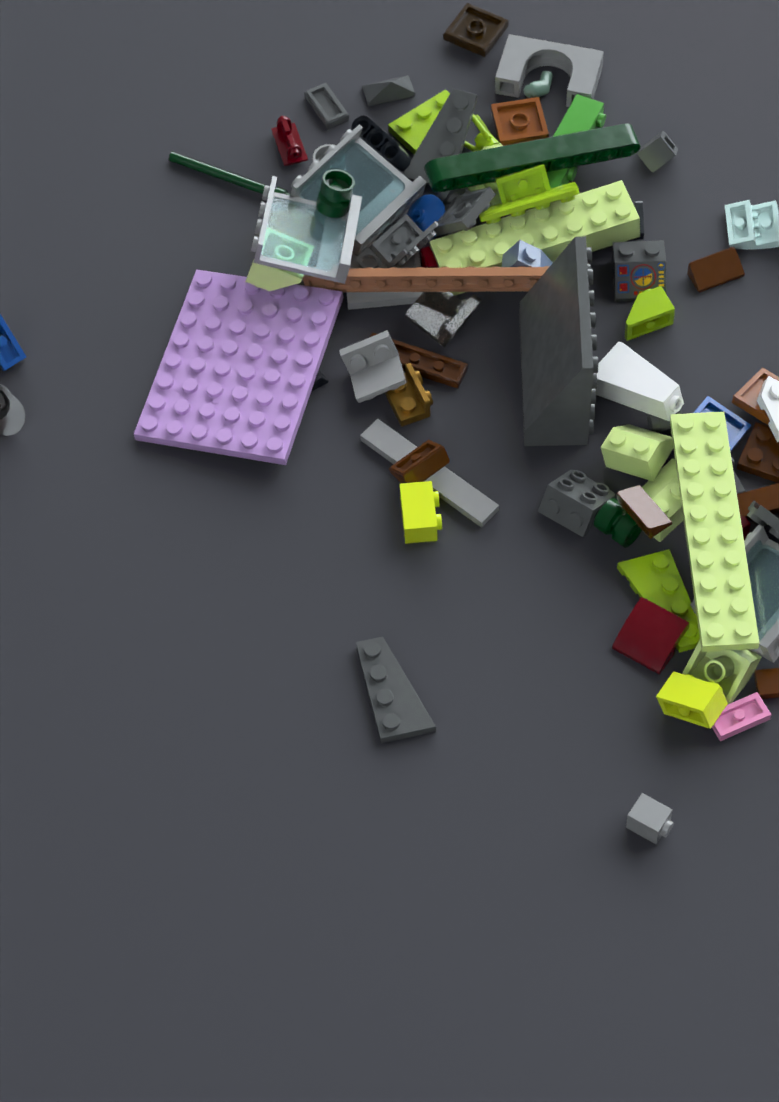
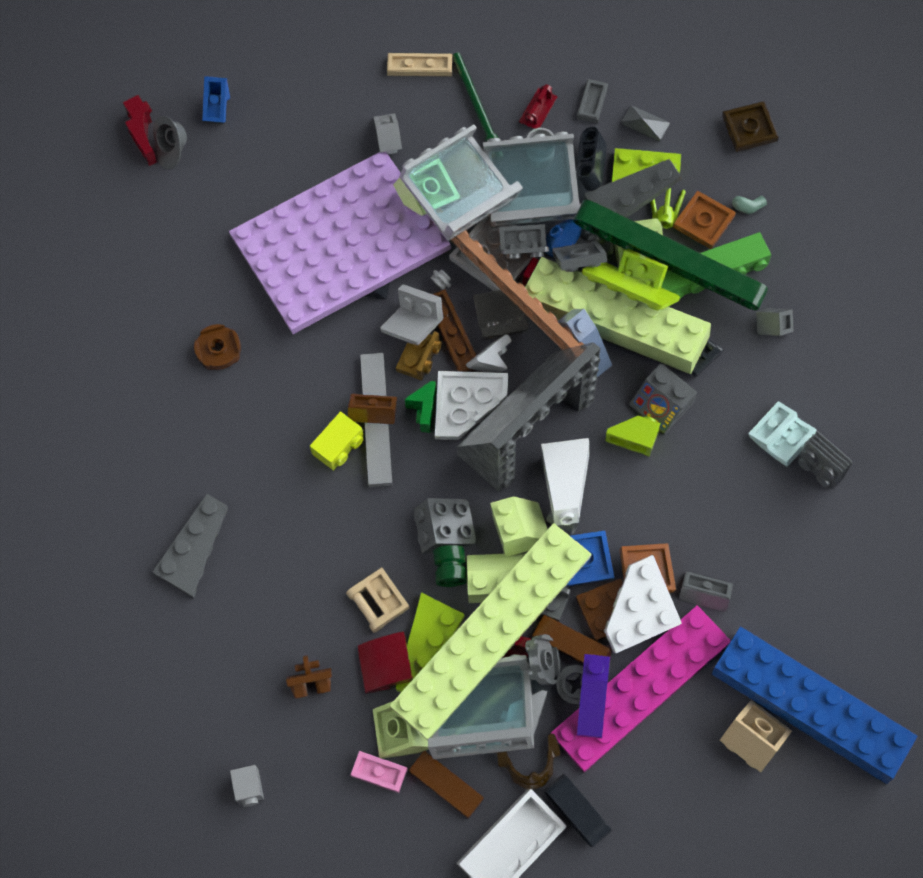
camera: 45 degrees right, 10 degrees up
(147, 186) = (419, 64): none -> tan tile
(185, 254) = (388, 133): none -> light grey slope
(235, 541) = (217, 359): none -> reddish brown plate
(335, 193) = (506, 170): dark green wheel -> none
(360, 327) = (441, 279): none -> light grey plate
(459, 425) = (423, 401): none -> green slope
(471, 349) = (489, 358): none -> light grey slope
(486, 398) = (466, 400): none -> white plate
(526, 54) = (761, 172): light grey arch -> none
(593, 590) = (385, 596): none -> tan plate
(613, 691) = (299, 681): none -> reddish brown hips
(643, 510) = (462, 574): slope -> none
(692, 699) = (357, 733): neon yellow brick -> none
(715, 269) = (718, 443): reddish brown slope -> none

